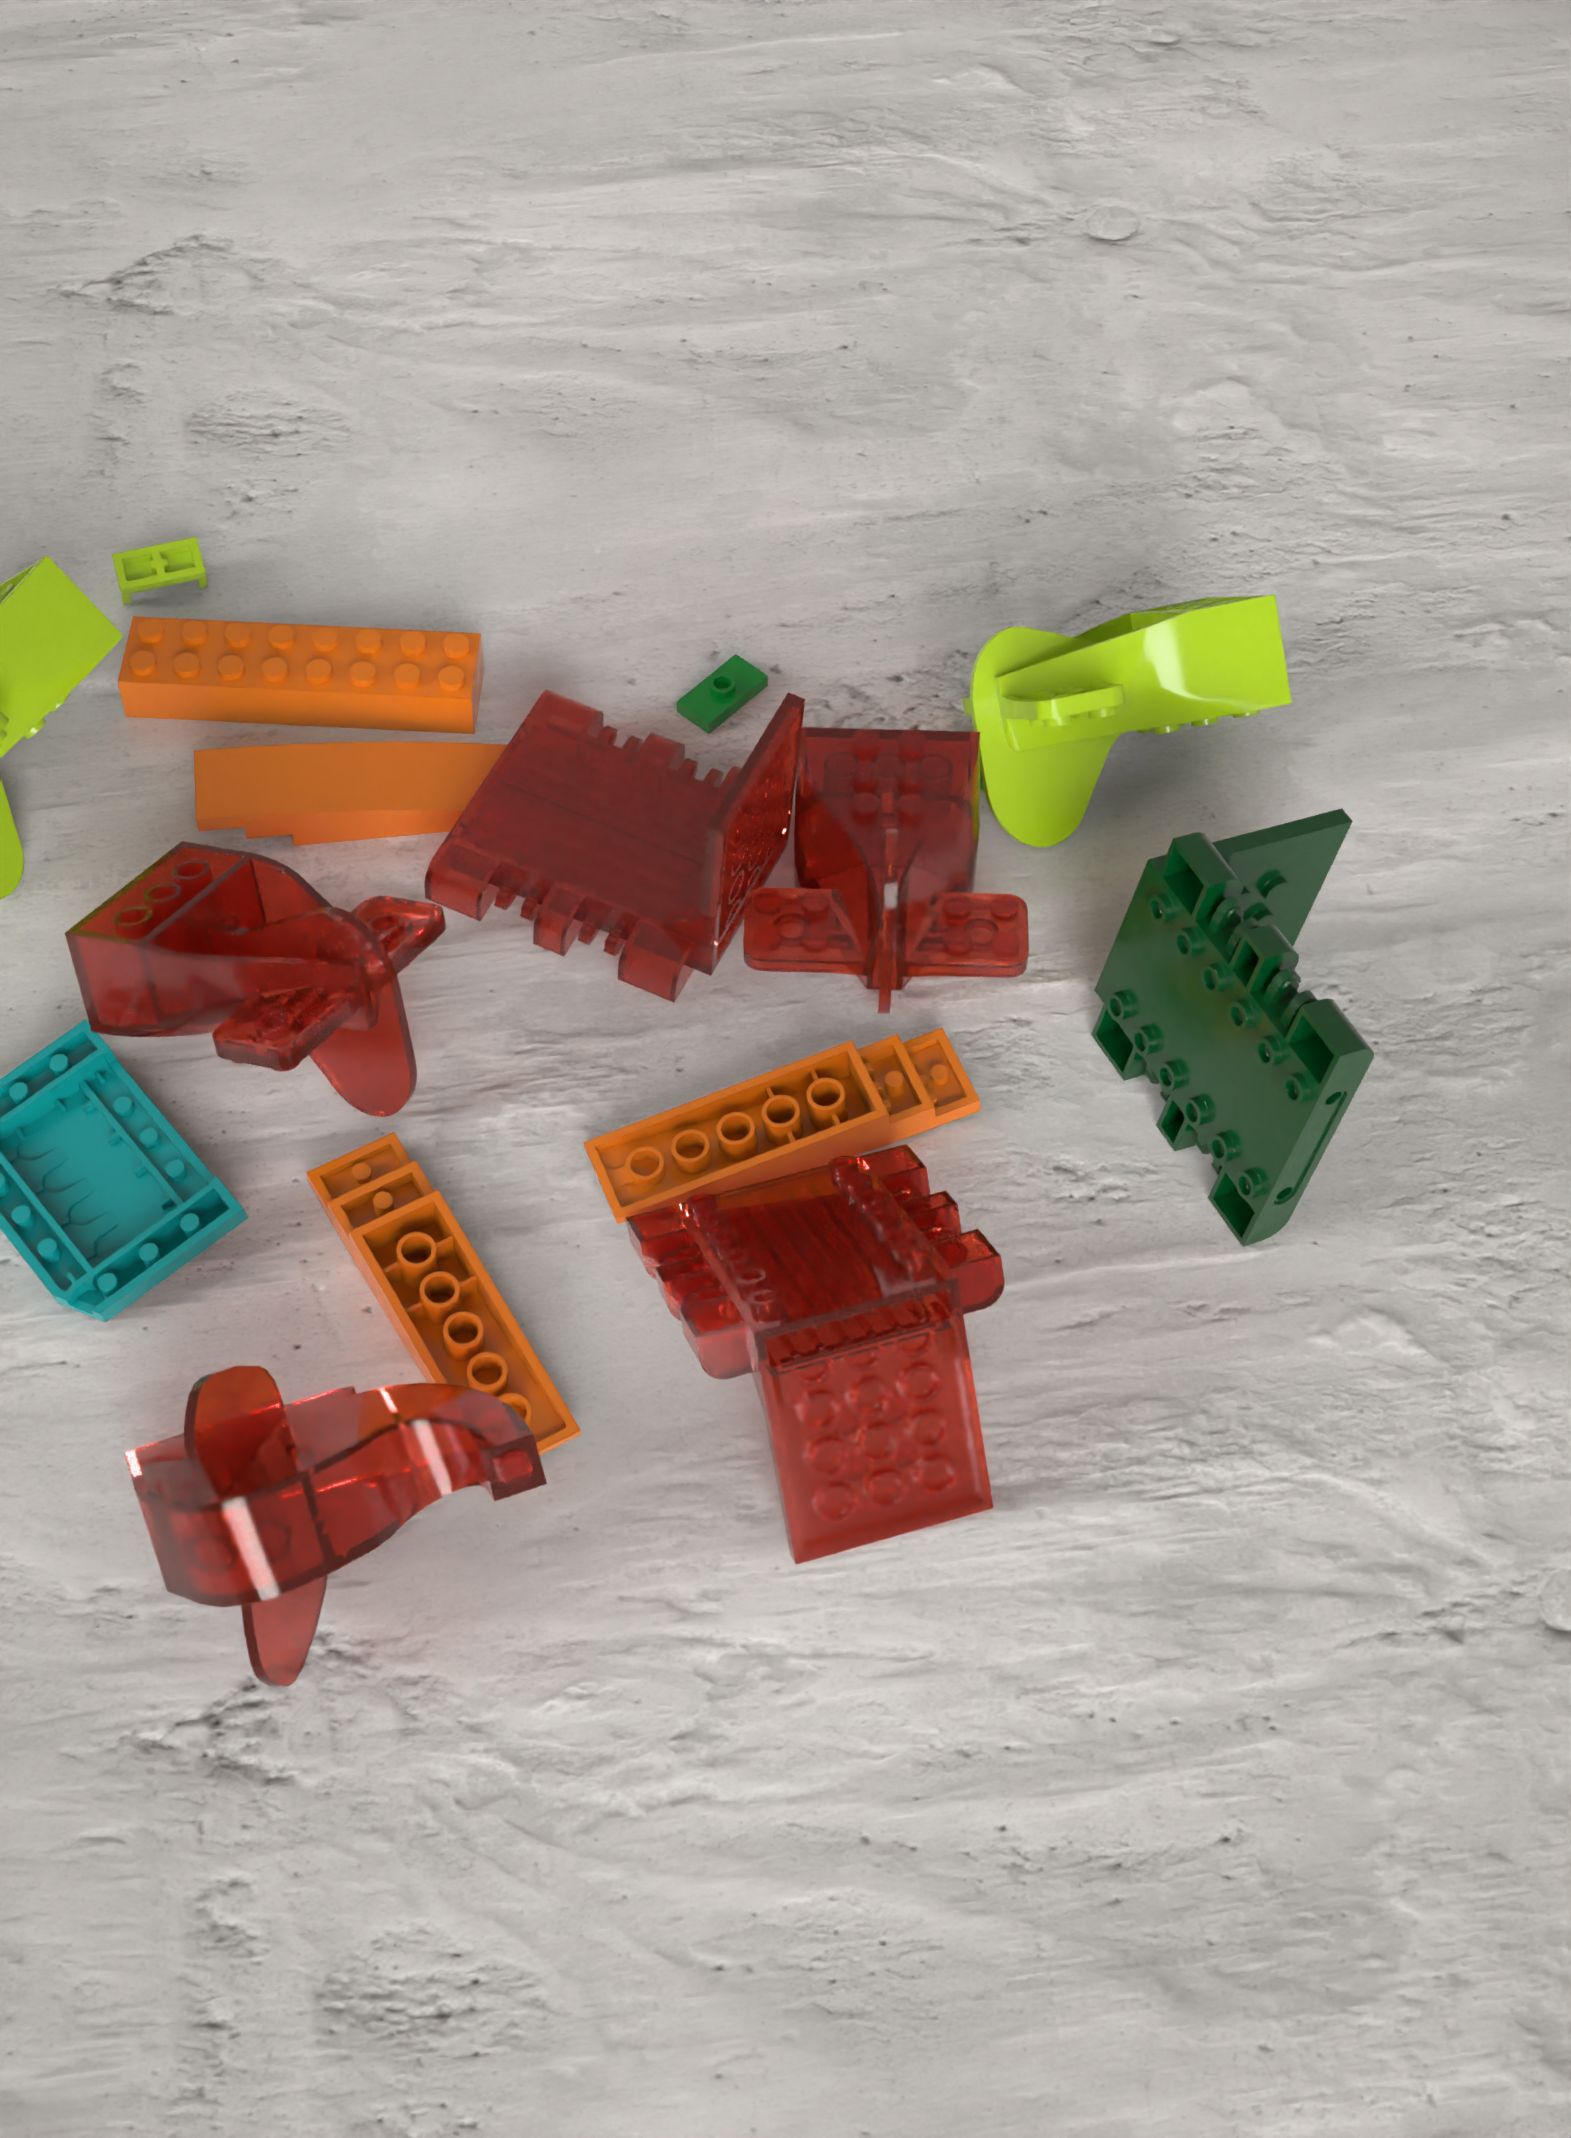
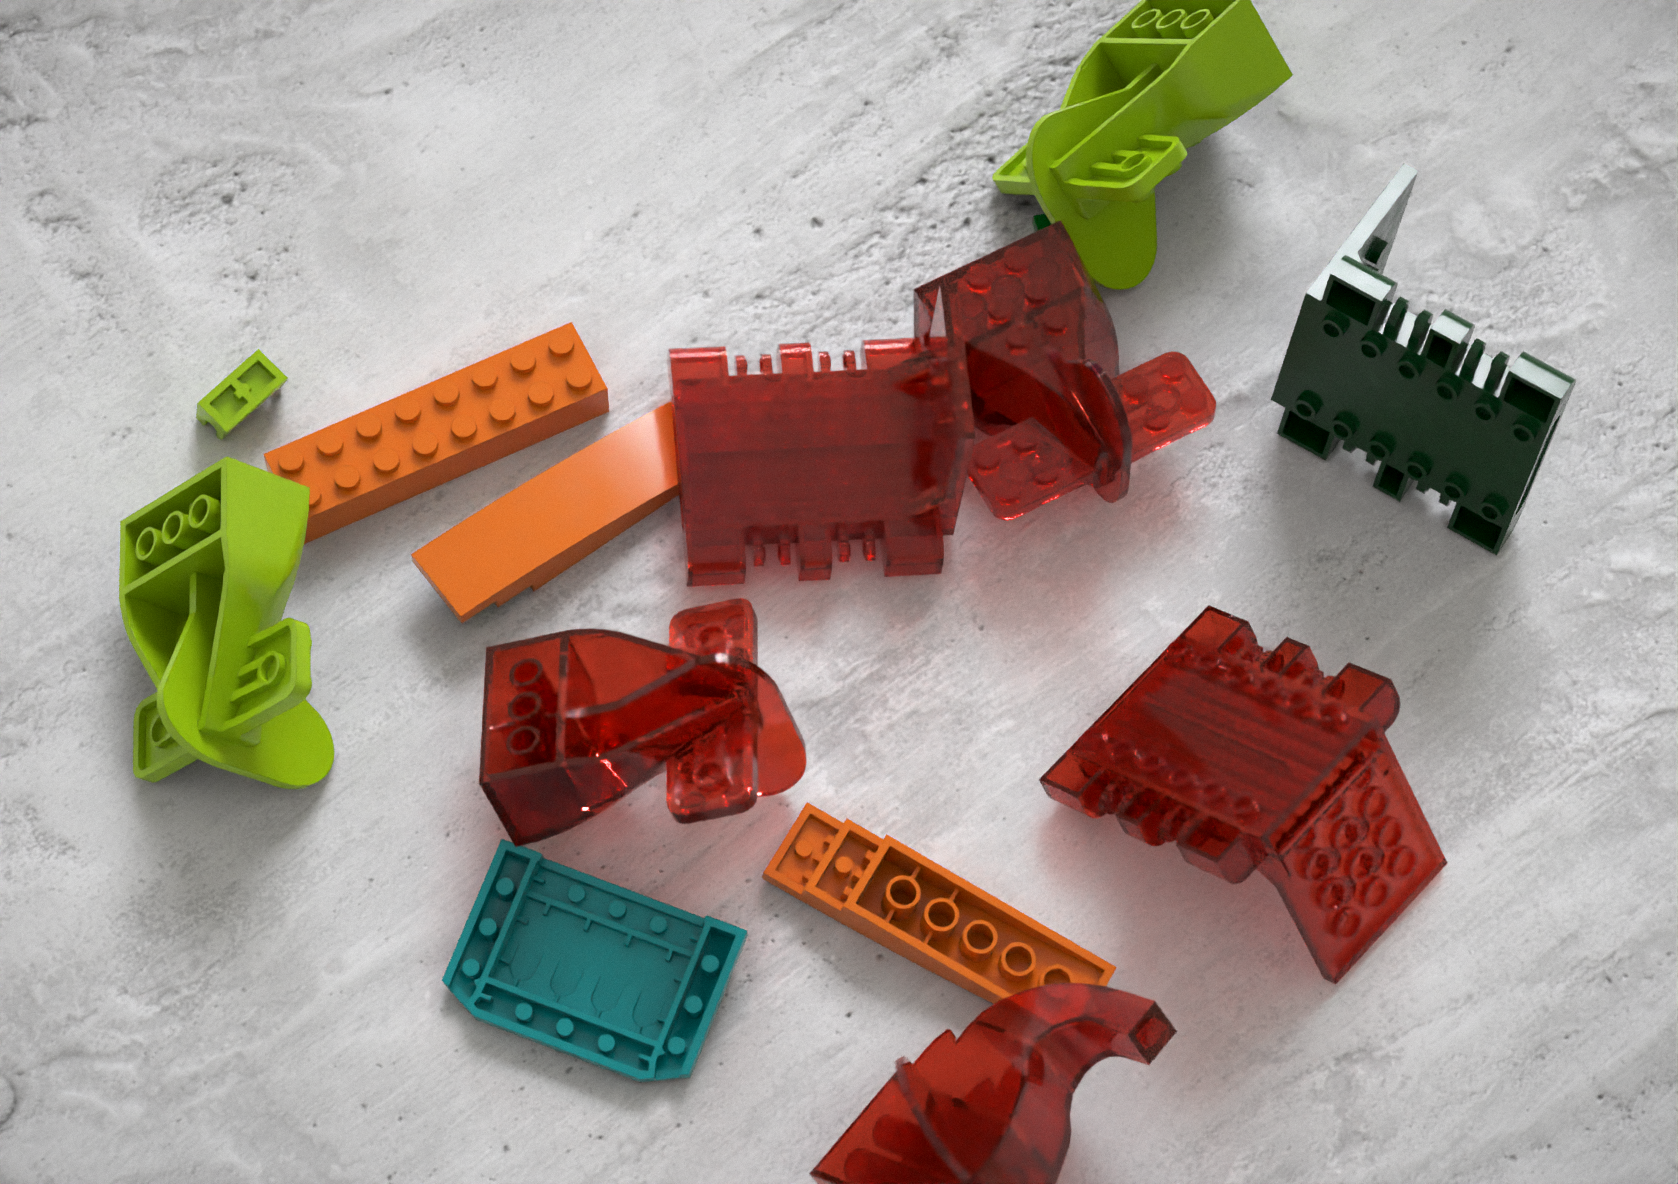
camera: 30 degrees left, 10 degrees up
(722, 694) = (791, 271): green plate -> none
(784, 1122) = (1097, 636): orange slope -> none

